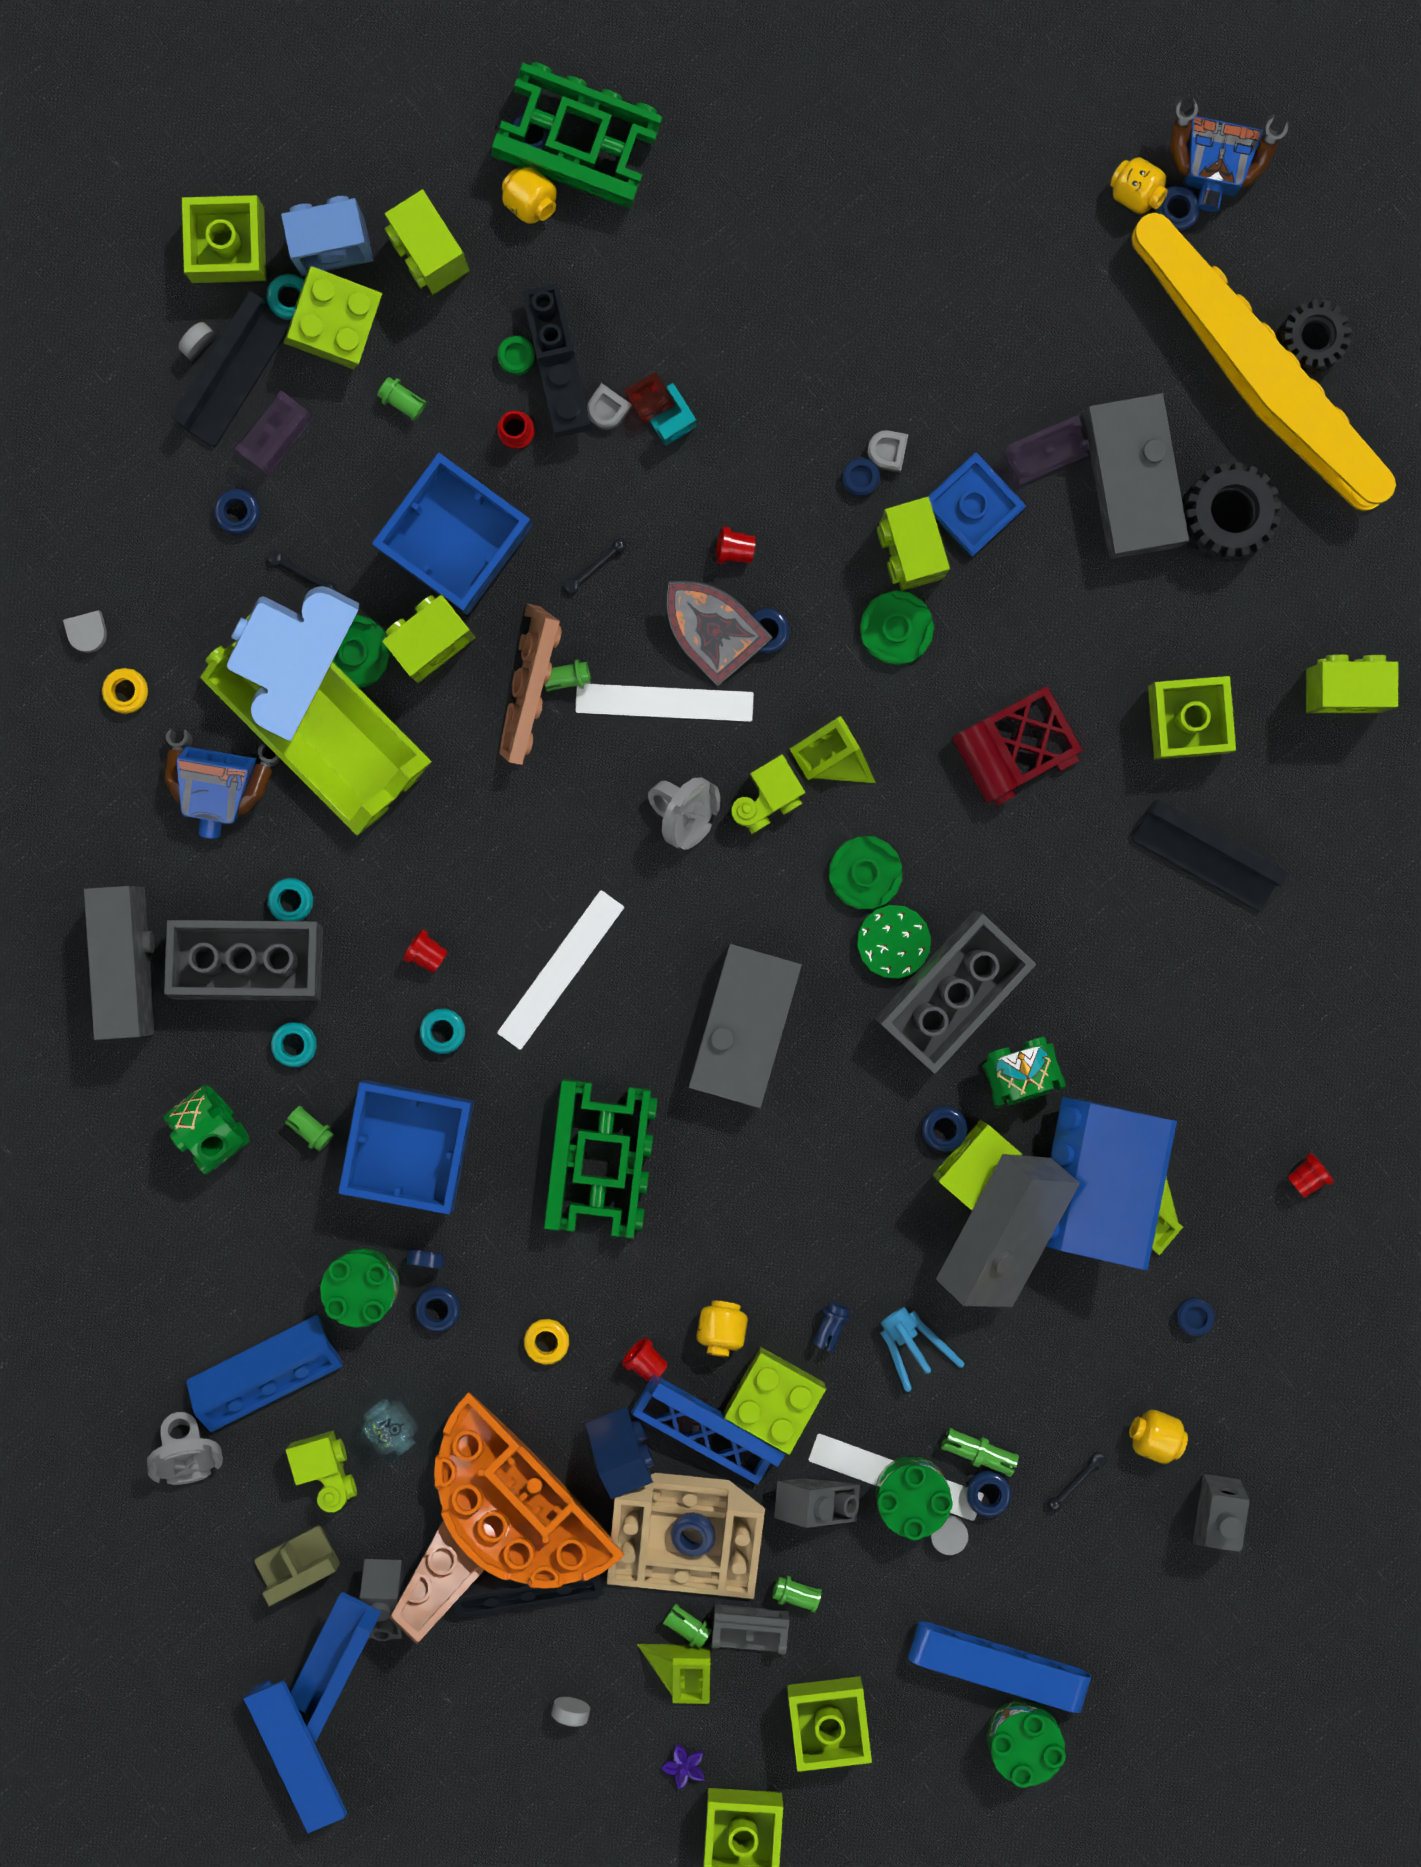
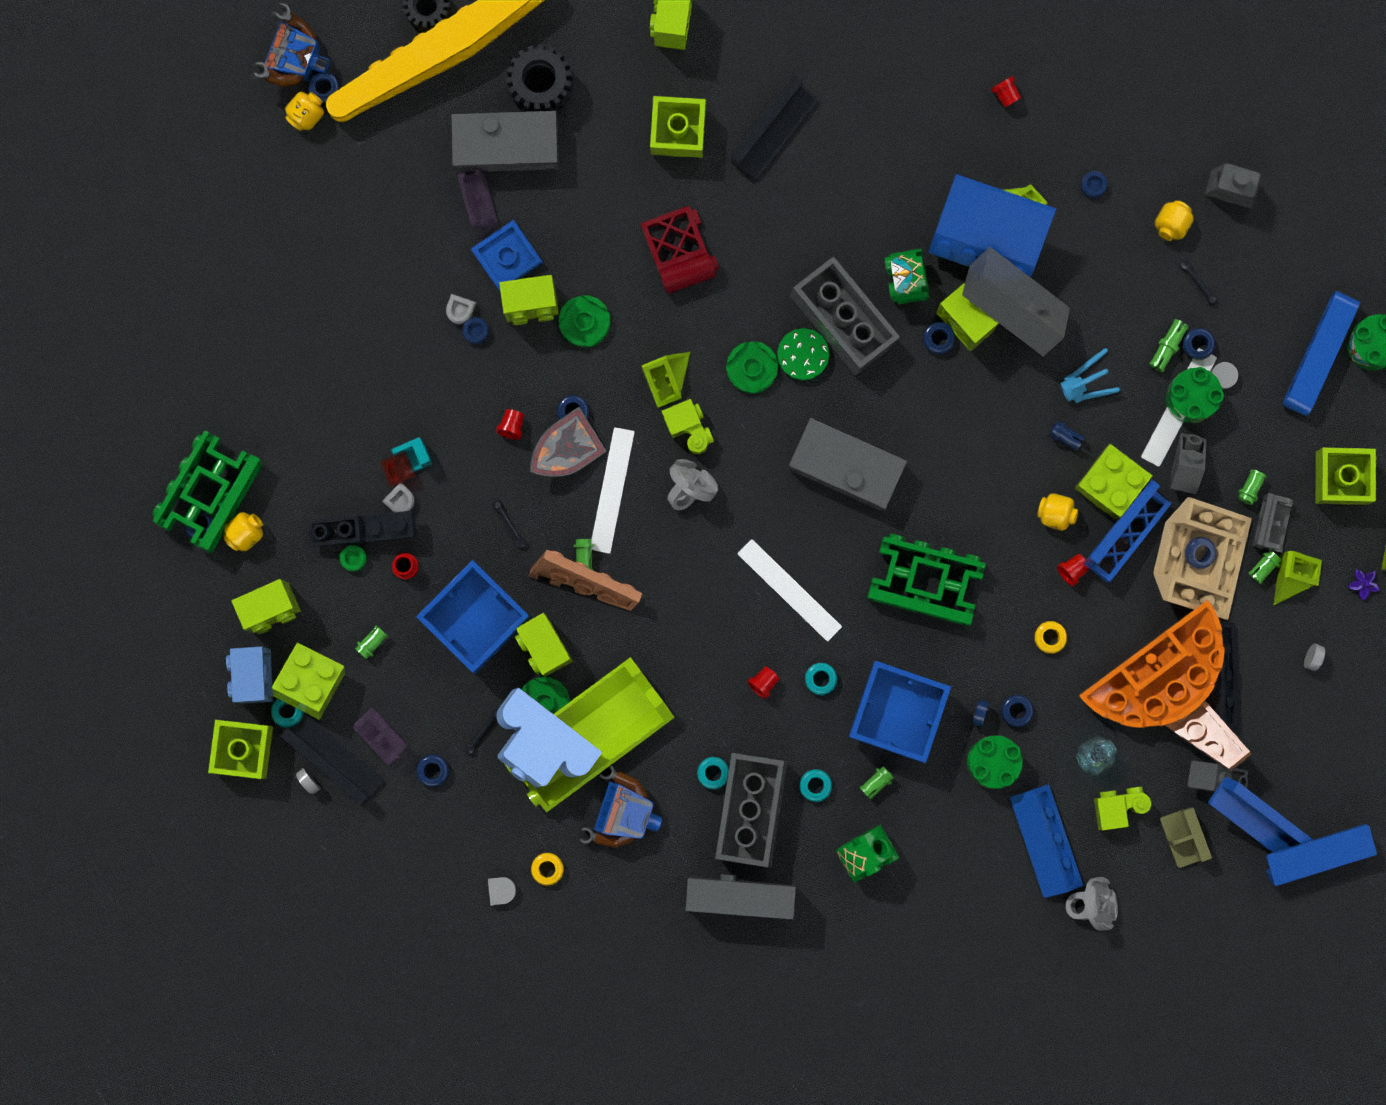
camera: 75 degrees left, 5 degrees down
(619, 1452) = (1135, 594): dark blue brick -> none

